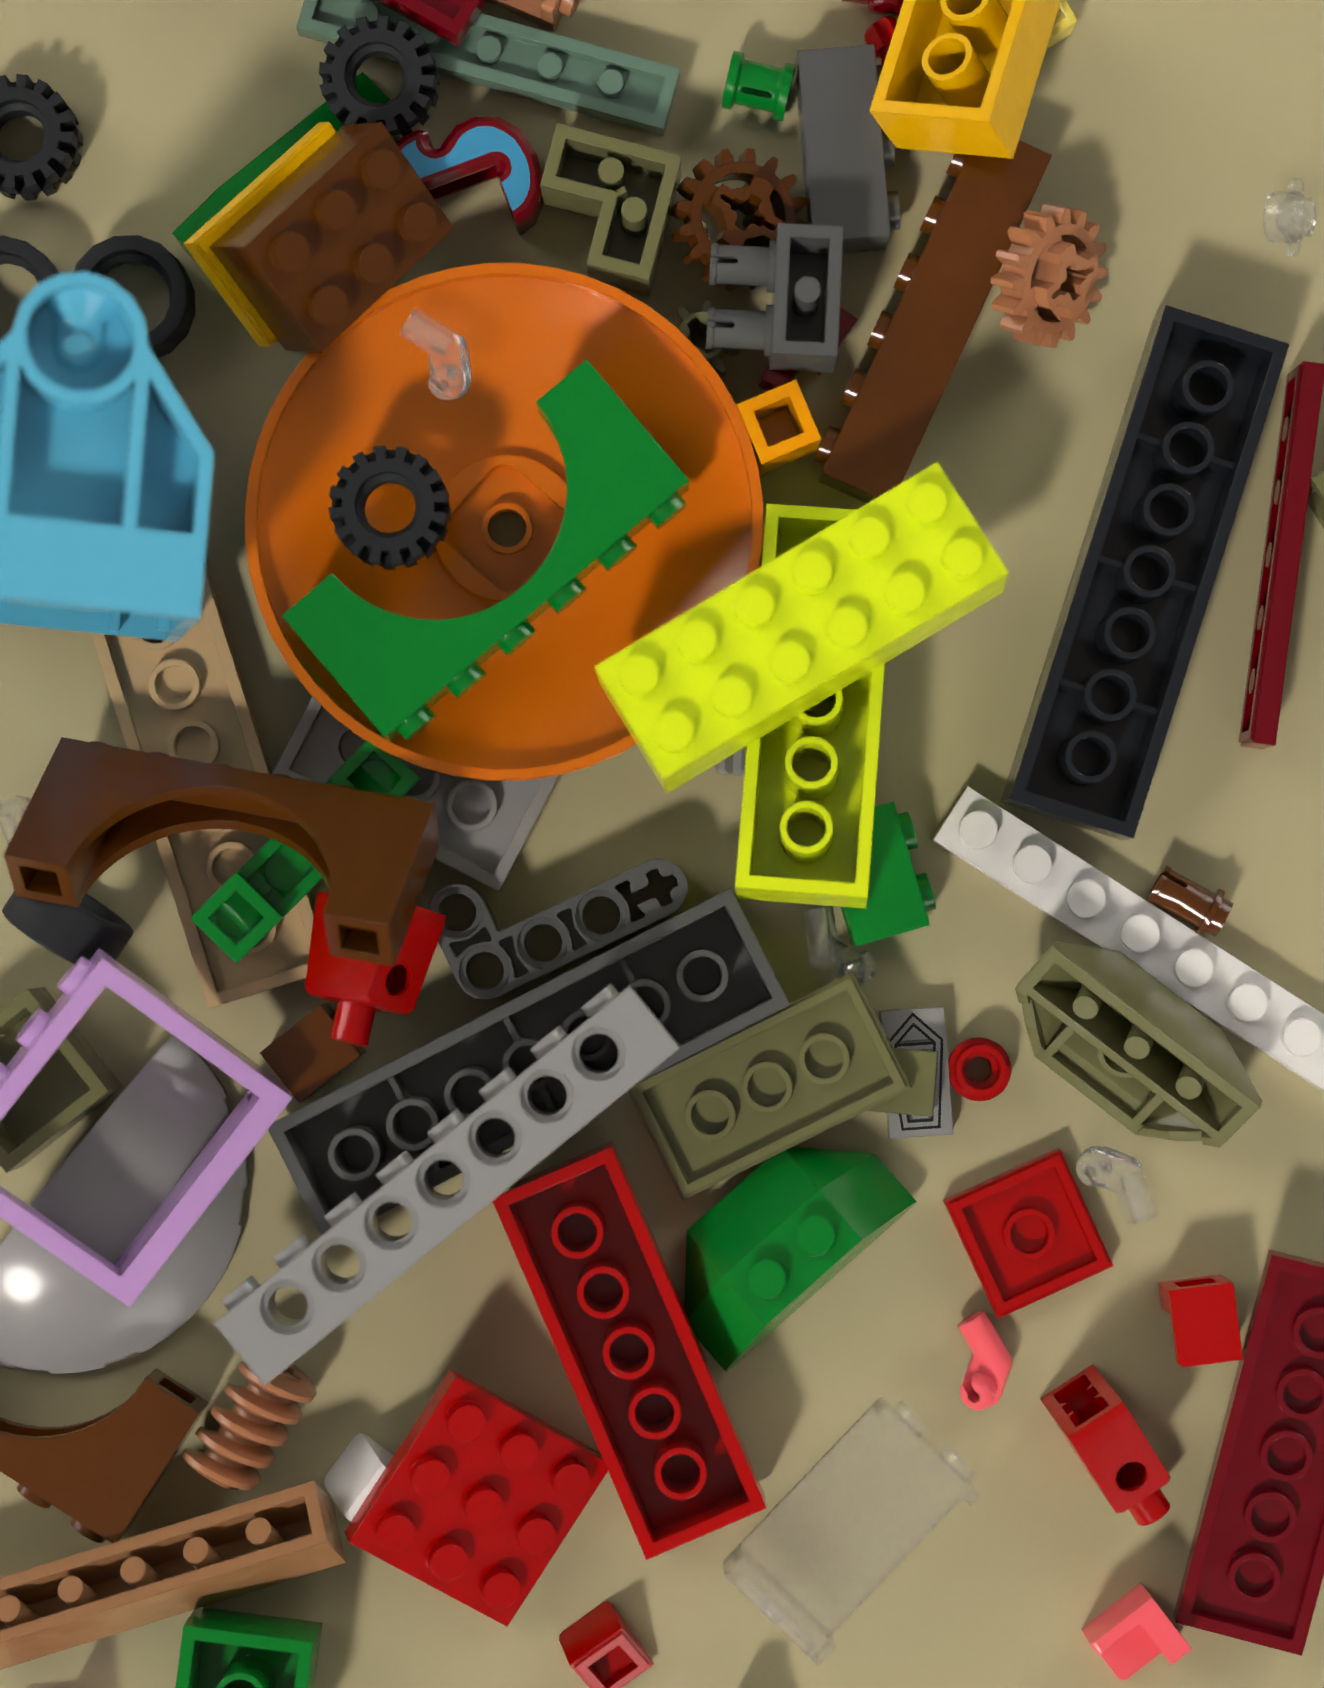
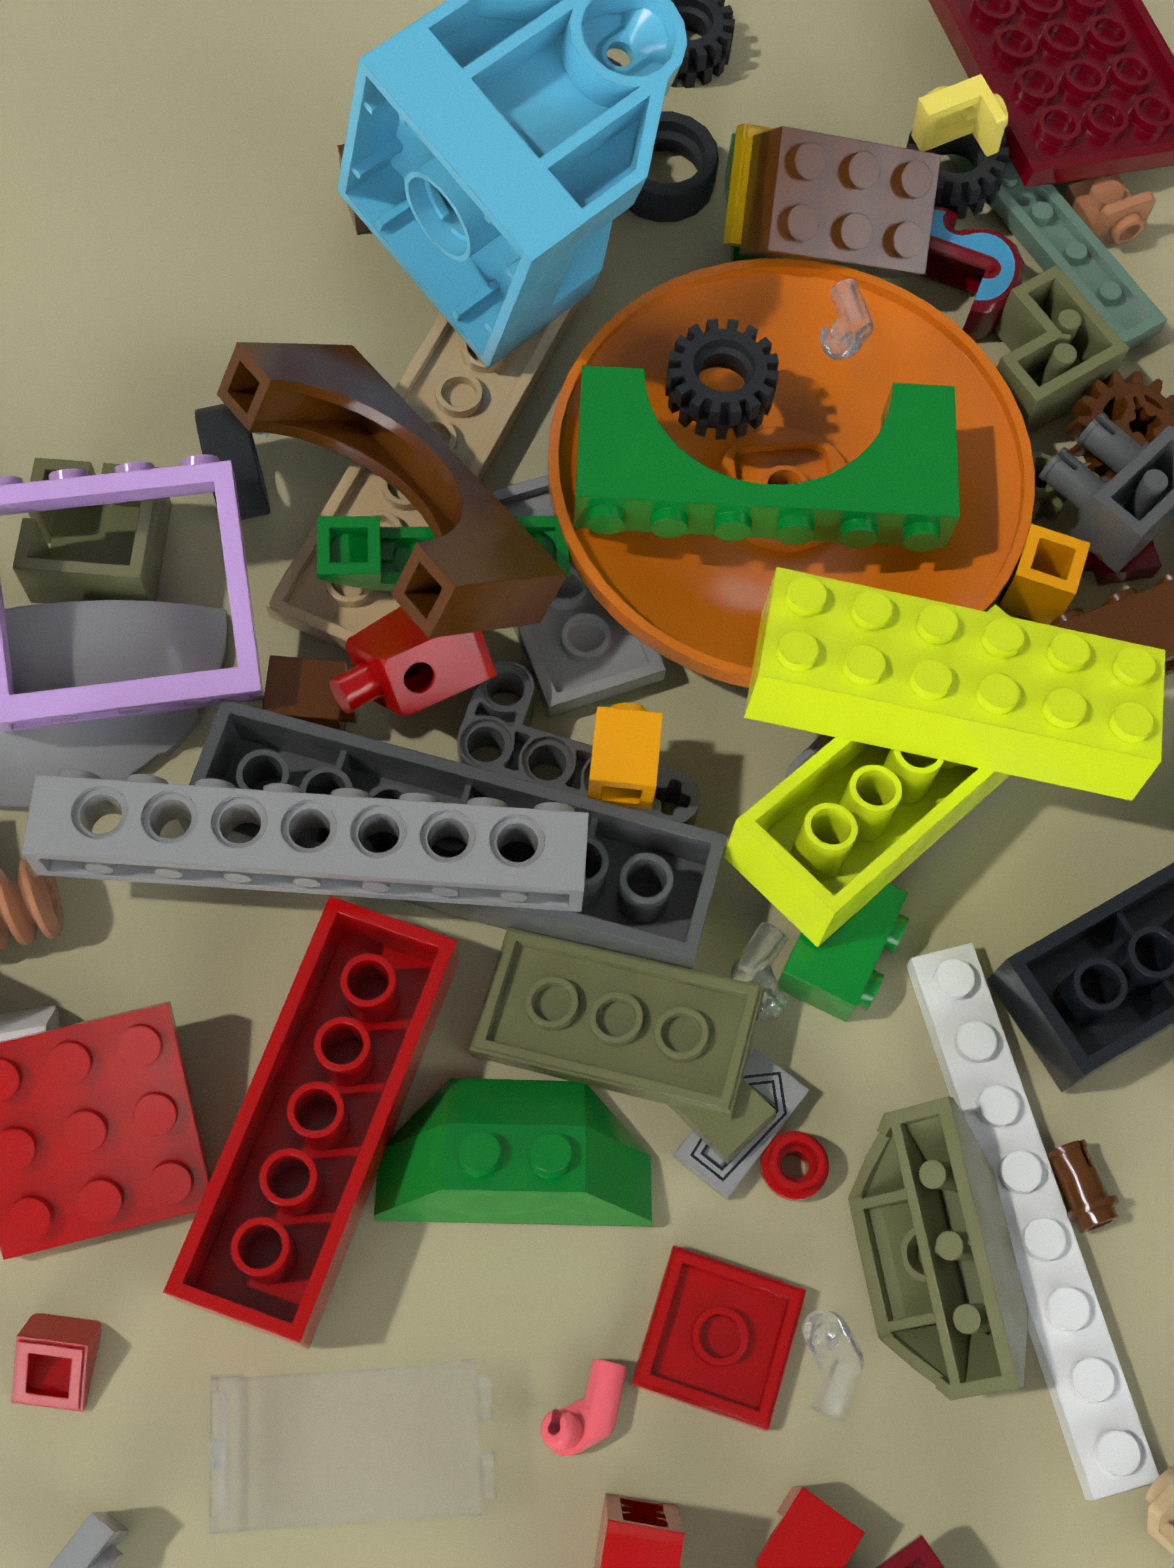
camera: 35 degrees right, 20 degrees down
(345, 57) = (959, 111): none -> light yellow bracket
(601, 896) = (625, 755): none -> light orange brick

